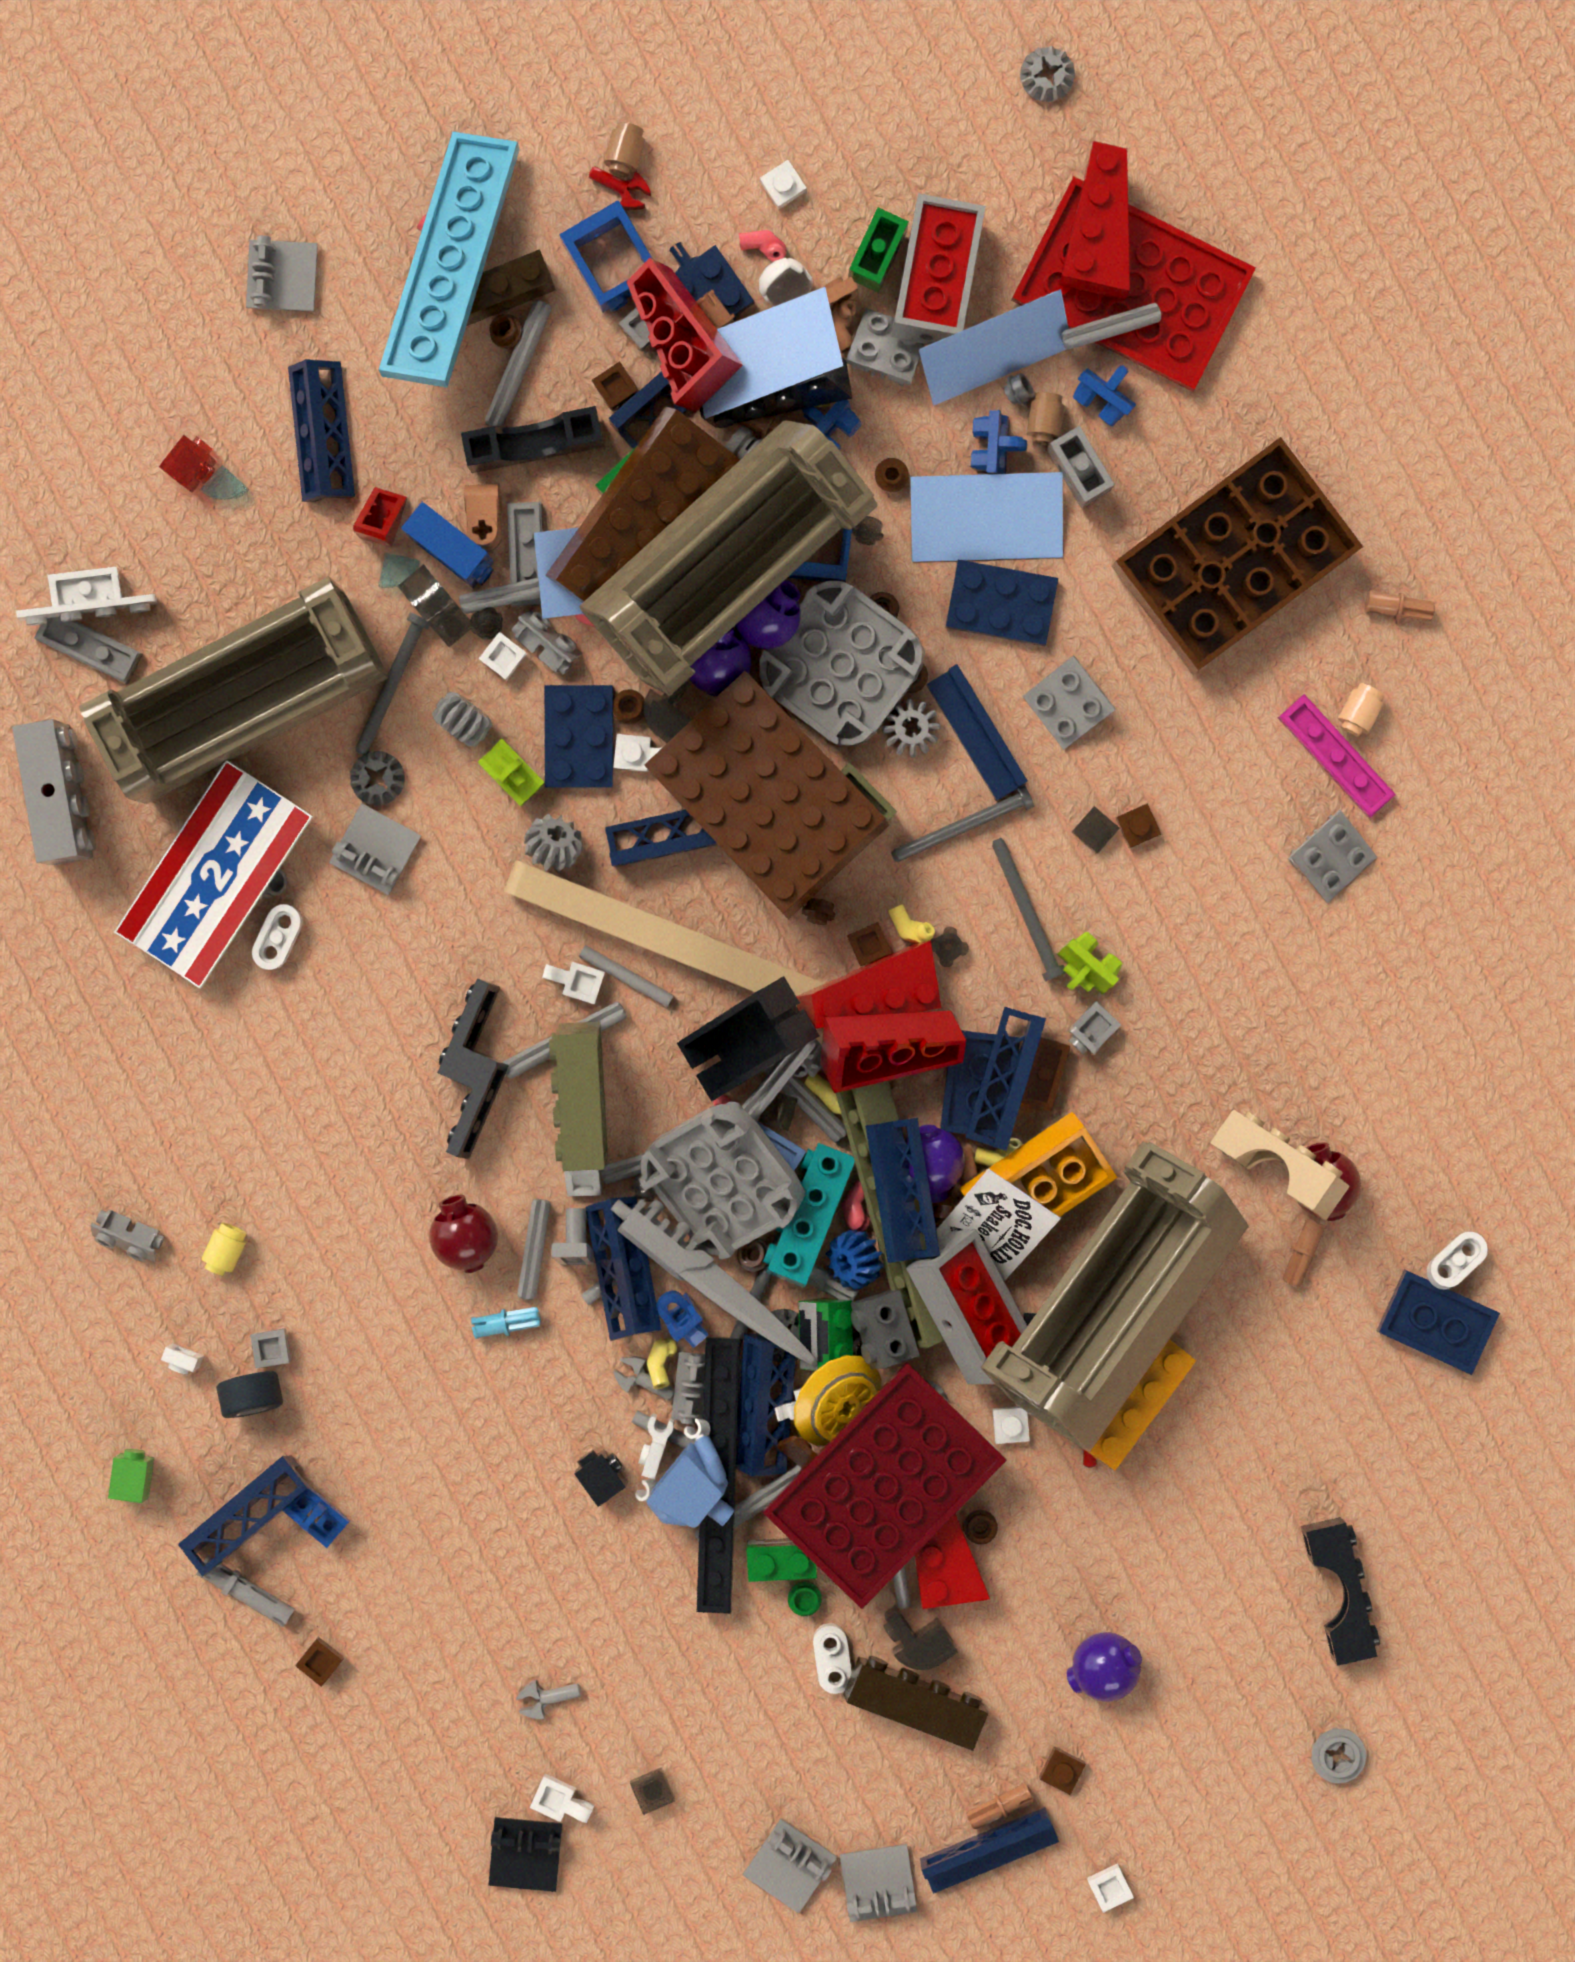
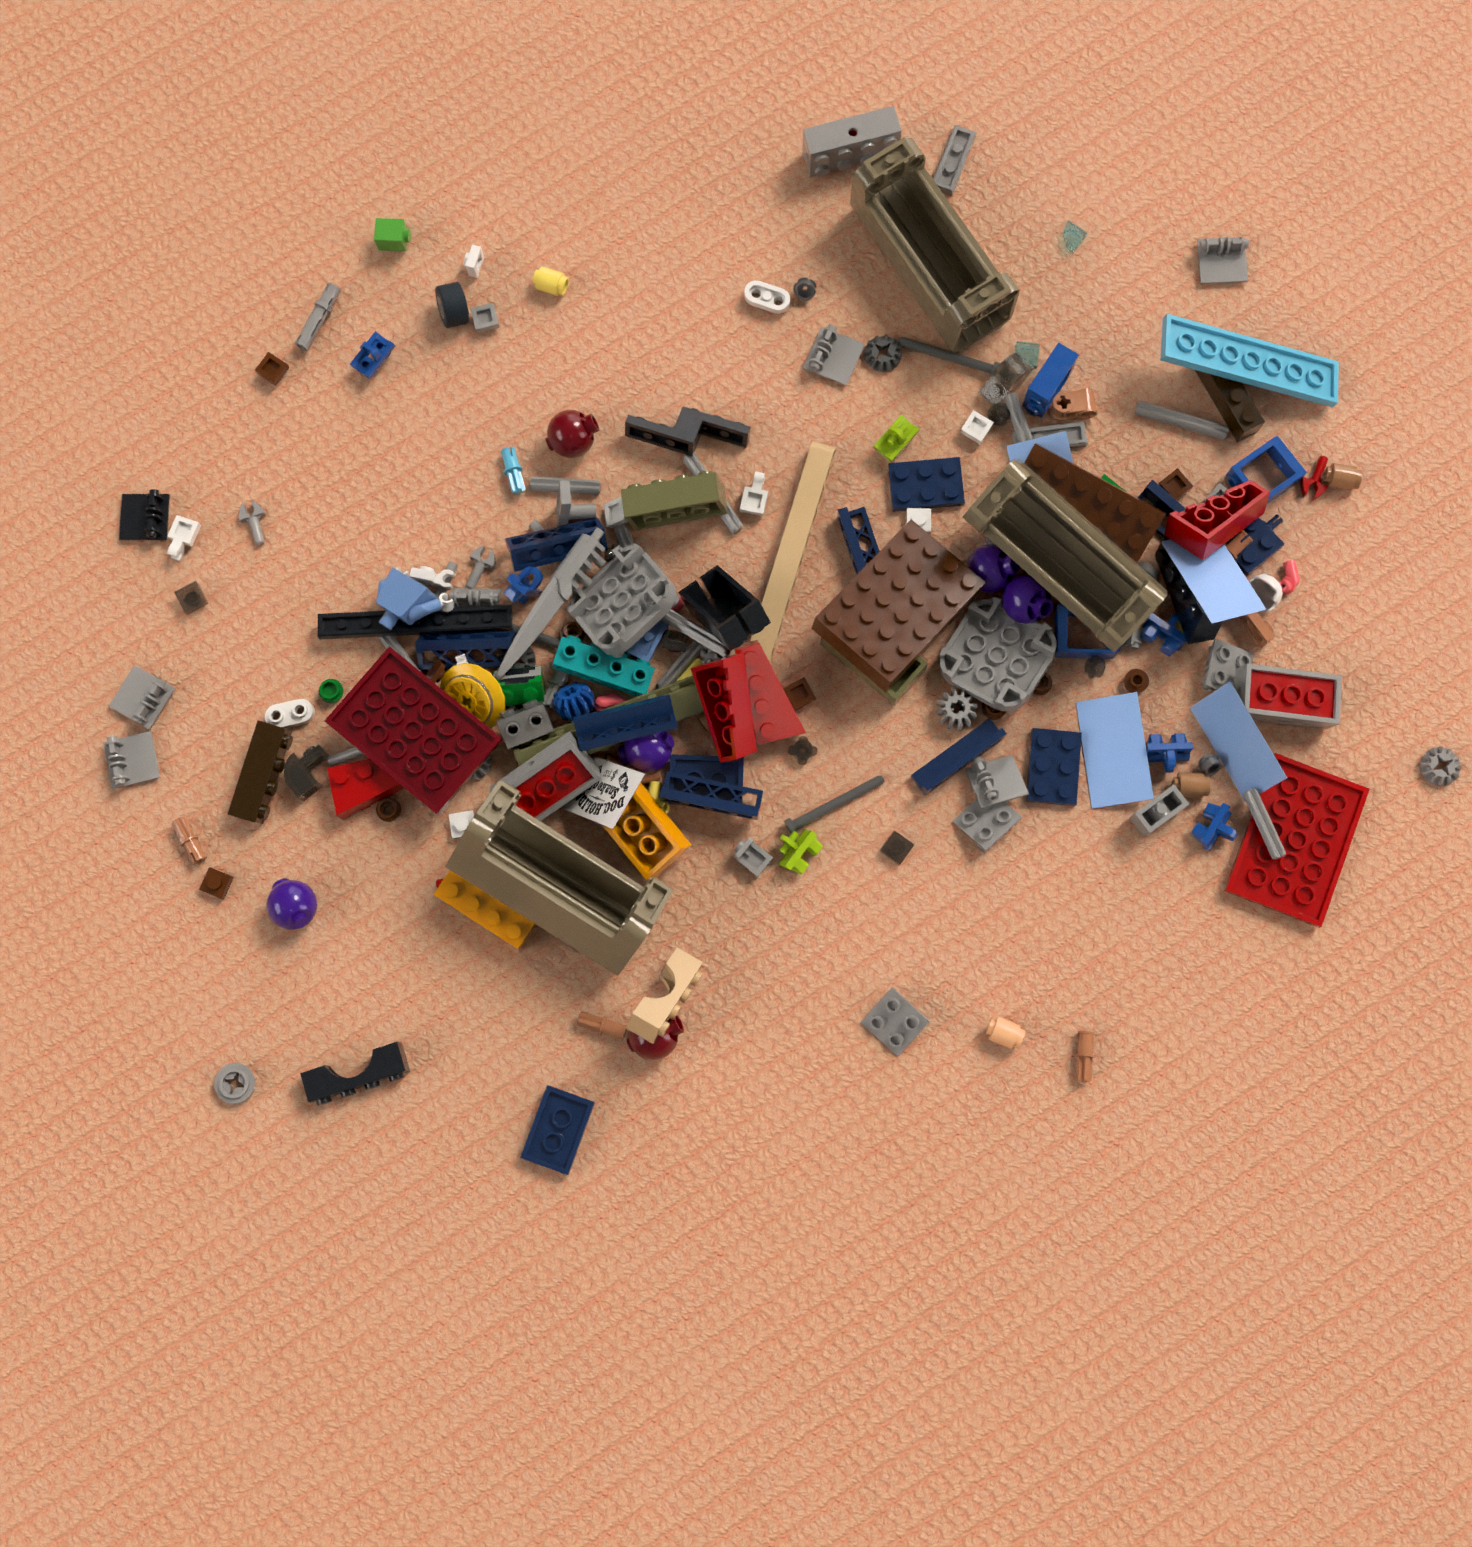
camera: 90 degrees right, 10 degrees down
(85, 593) = (989, 153): white bracket -> none
(114, 1233) = (550, 227): light grey hinge -> none
(189, 463) = (1086, 210): clear red brick -> none
(213, 874) = (807, 248): hinge -> none
(240, 1505) = (373, 304): dark blue fence -> none
(314, 459) = (1118, 286): dark blue fence -> none
(380, 517) = (1064, 333): red slope -> none
(462, 719) = (929, 401): light grey gear -> none
(499, 327) = (1204, 408): reddish brown plate -> none
(509, 446) = (1122, 412): black arch -> none
(553, 843) = (849, 470): light grey gear -> none
(559, 648) = (996, 450): light grey hinge -> none
(601, 1475) = (409, 542): black brick -> none
(619, 701) = (953, 509): reddish brown plate -> none
(626, 976) = (761, 530): light grey piece -> none
(655, 1363) = (492, 574): light yellow arm -> none
(662, 714) = (950, 536): clear smoke brick -> none
(777, 1561) = (355, 663): green brick -> none
(783, 184) = (1333, 588): white plate -> none
(819, 911) = (819, 657): reddish brown plate -> none
(842, 317) = (1240, 635): nougat arm -> none
(878, 249) = (1296, 653): green brick -> none
(910, 929) = (812, 722): light yellow arm -> none
(964, 825) = (913, 792): dark grey bar -> none
(988, 1850) = (157, 835): dark blue fence -> none
(1017, 684) = (996, 780): none -> light grey hinge
(1046, 1074) = (717, 825): reddish brown plate -> none
(1100, 231) = (1329, 806): red wedge -> none
(1110, 1887) = (132, 924): white plate -> none
(1138, 825) = (903, 878): reddish brown plate -> none
(1236, 555) = (1108, 930): reddish brown brick -> none
(1336, 756) = (969, 1019): dark pink tile -> none
(1455, 1261) = (604, 1138): white plate -> none

